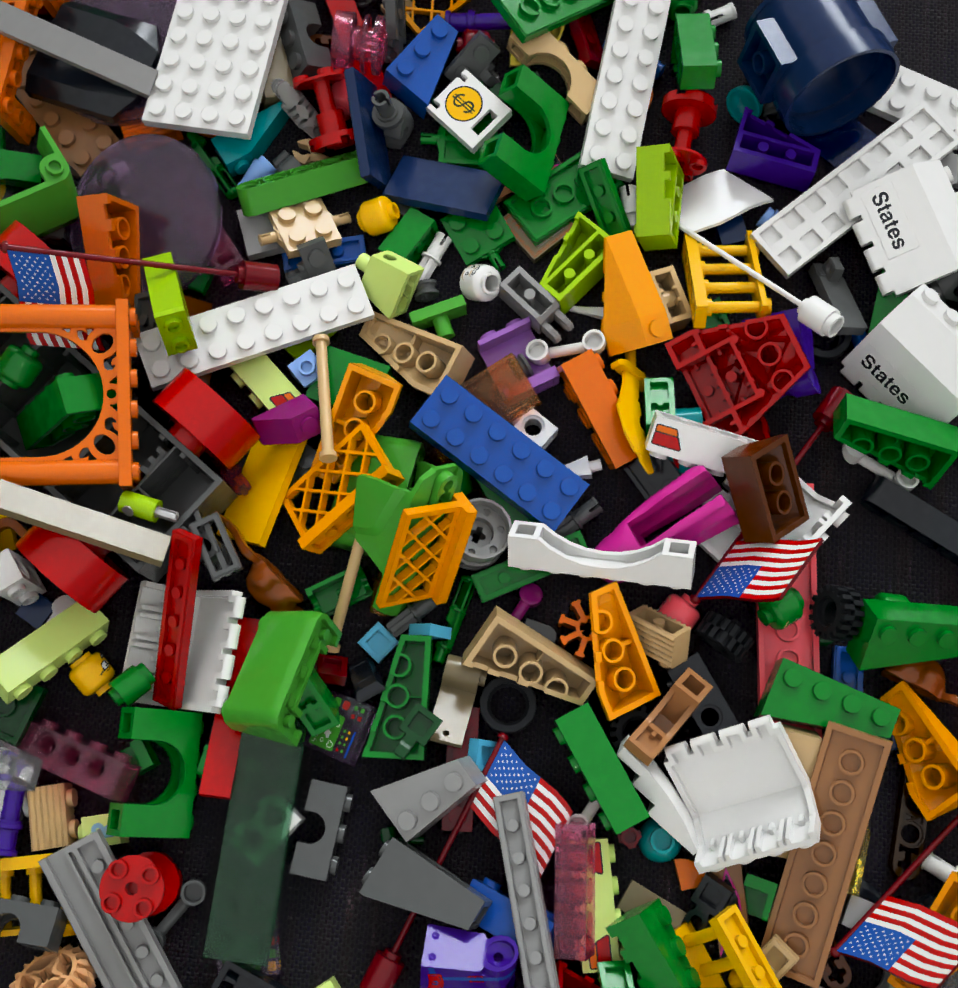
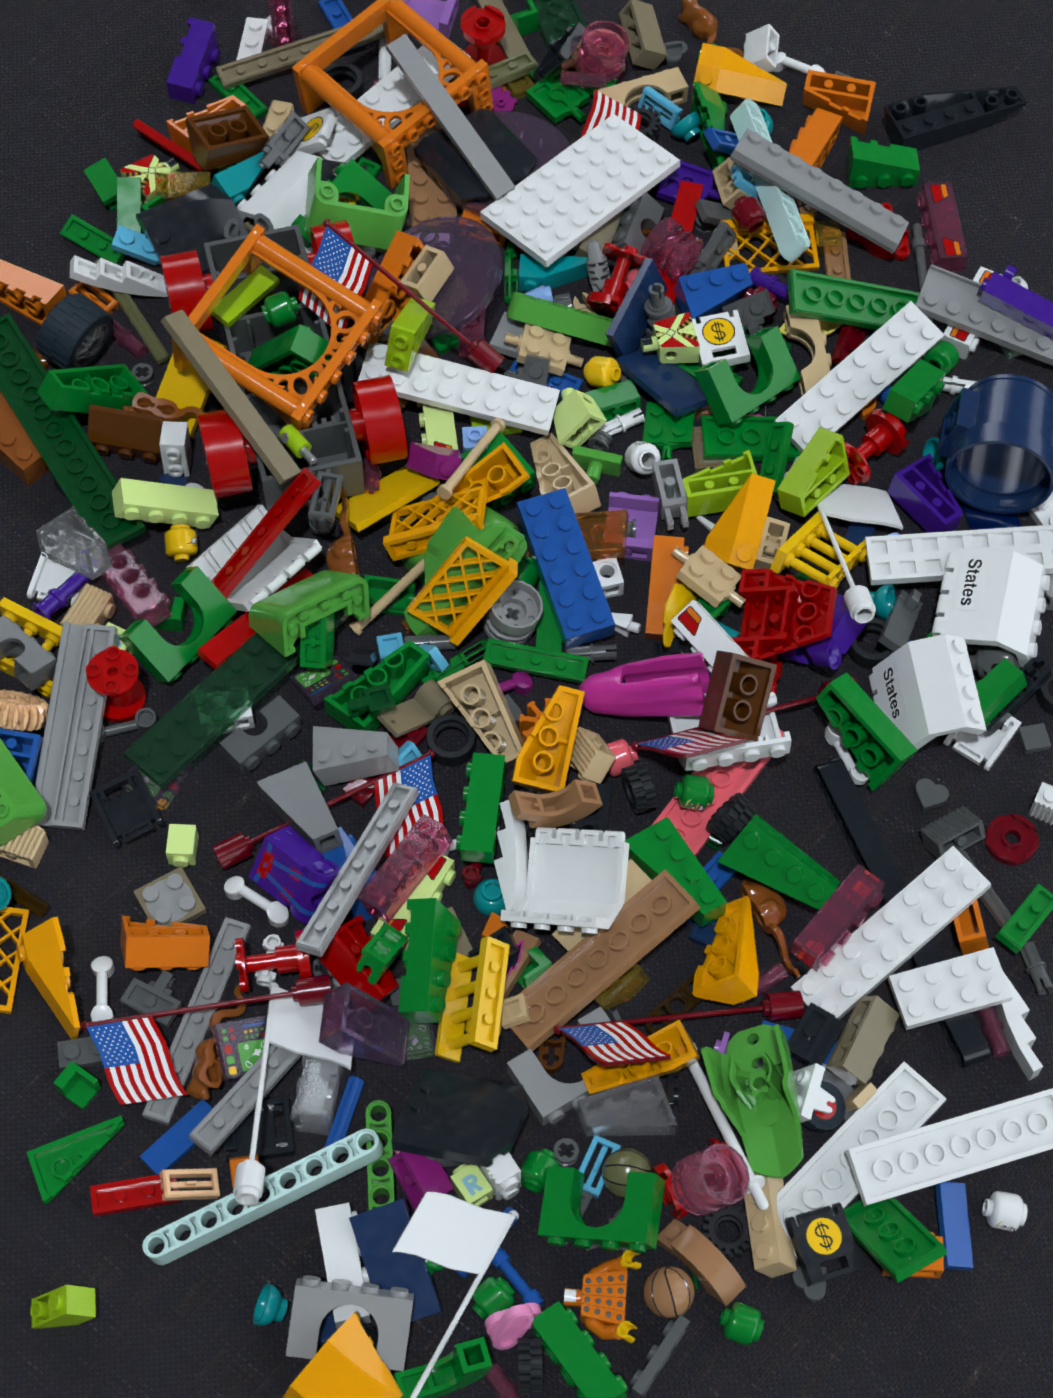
camera: 30 degrees right, 15 degrees down
(131, 685) = (206, 558): green brick -> none
(139, 224) = (428, 273): none -> tan brick
(332, 669) = (345, 640): dark red plate -> none
(426, 139) = (673, 340): none -> yellowish green torso
(541, 354) = (650, 526): white bar -> none
(640, 373) = (708, 576): none -> tan plate
(661, 564) = (548, 642): white arch -> none
(801, 285) = (883, 600): none -> teal piece

